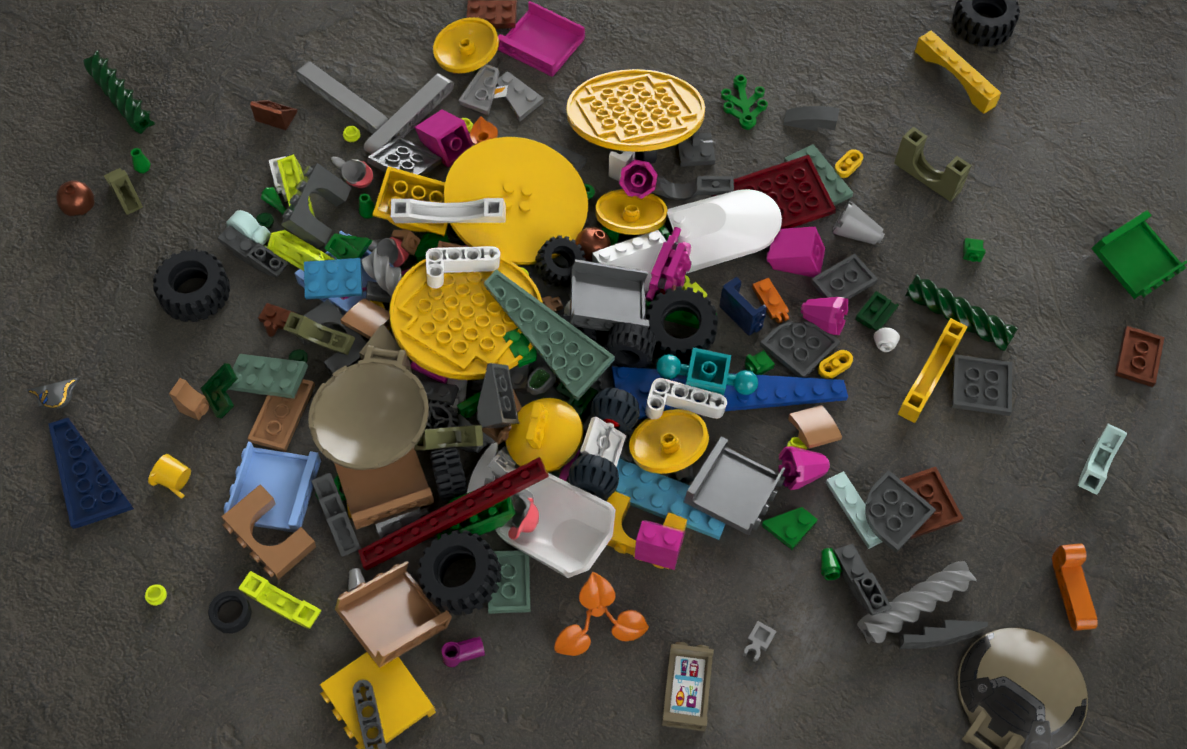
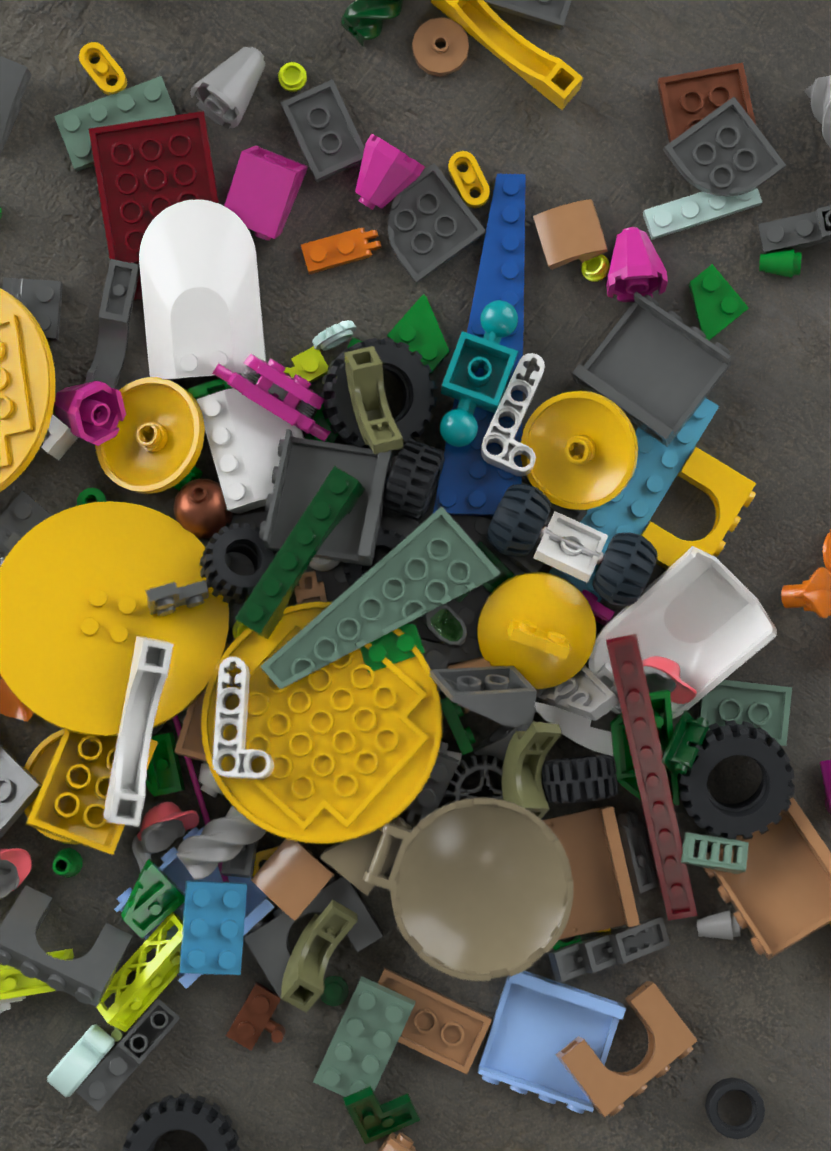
camera: 80 degrees left, 25 degrees up
(265, 219) = (63, 1033): dark green plate -> none
(272, 198) = (21, 1018): green cone -> none
(279, 601) = (728, 1035): neon yellow slope -> none
(406, 580) = (739, 858): none -> sand green slope
(409, 240) = (158, 798): medium nougat bracket -> none
(477, 525) = (679, 755): none -> dark green hinge
(530, 221) = (167, 597): none -> dark grey plate
(607, 296) = (328, 507): none -> dark green arch
(658, 544) = (737, 489): dark pink slope -> none
(674, 306) = (369, 400): none -> olive arch
(716, 299) = (334, 335): none -> light aqua gear
(729, 345) = (422, 333): none -> green wing
(739, 309) = (362, 300): dark blue panel -> none
(759, 363) = (449, 292): green bracket -> none
(873, 260) = (292, 77): none -> neon yellow plate
(876, 311) = (388, 95): dark green plate -> none
(886, 339) = (441, 93): white cone -> none
(914, 345) = (444, 60): none -> medium nougat plate

